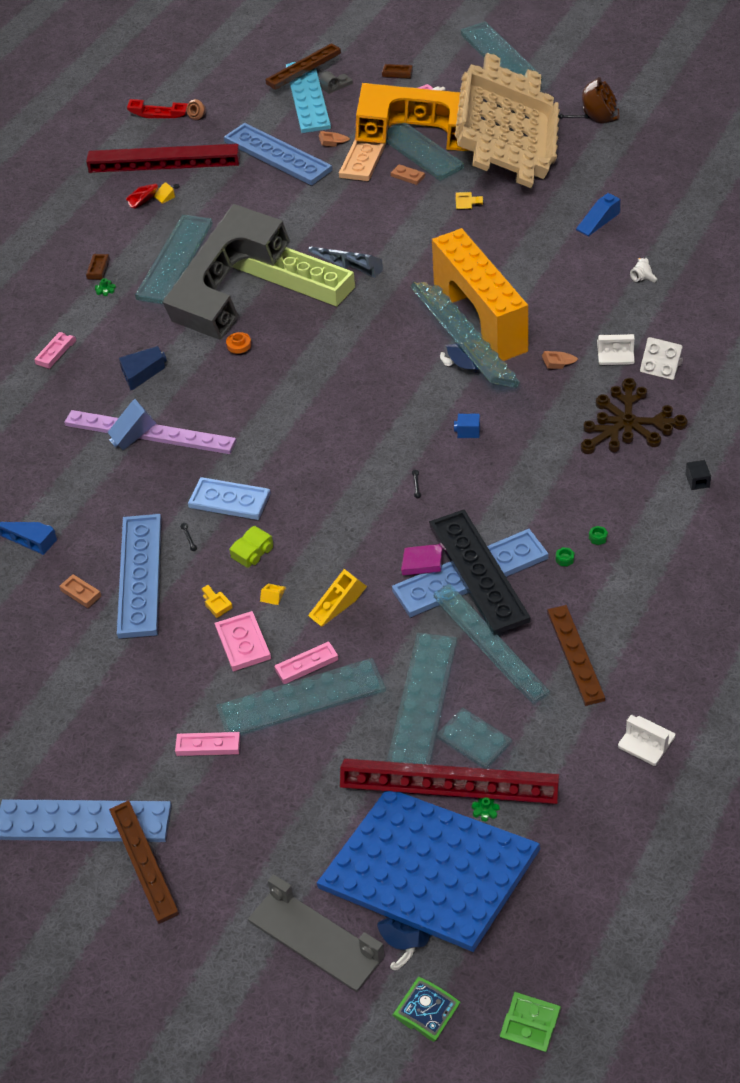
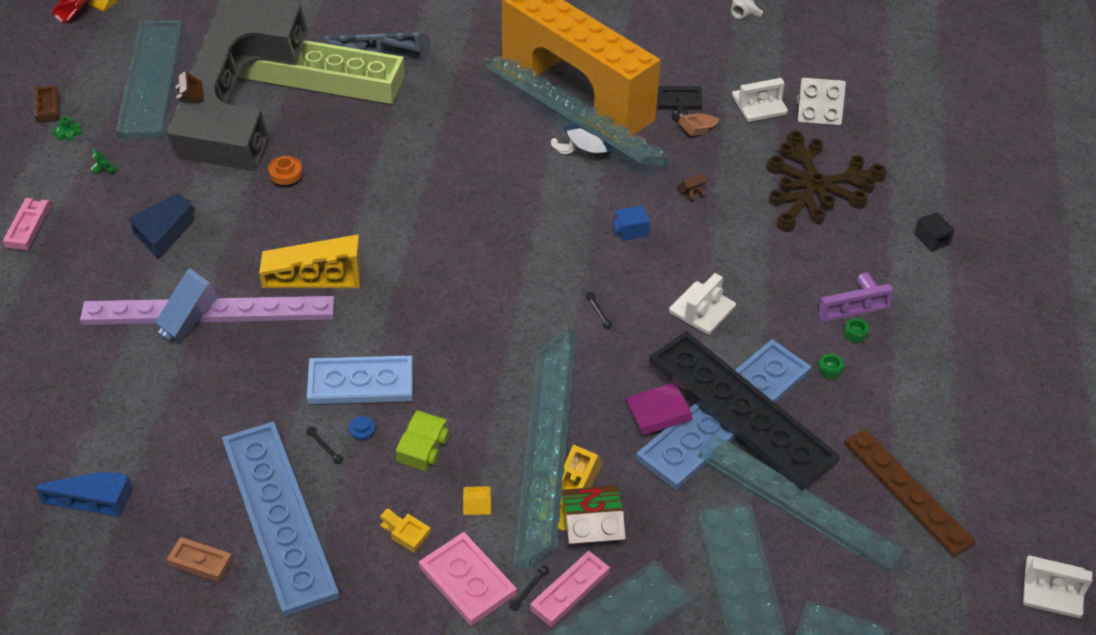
camera: 25 degrees left, 0 degrees up
(118, 316) = (101, 163): none -> green plant
(185, 272) = (189, 88): none -> reddish brown tile
(217, 530) = (362, 427): none -> blue plate
(229, 413) = (313, 265): none -> yellow wedge
(295, 648) = (515, 604): none -> black hinge
(330, 568) = (545, 451): none -> clear light blue plate
(340, 619) = (593, 515): none -> slope
(493, 495) = (704, 305): none -> white bracket
(528, 405) = (692, 185): none -> reddish brown tile
(552, 338) = (679, 99): none -> black plate
(608, 515) = (856, 302): none -> medium lavender piece

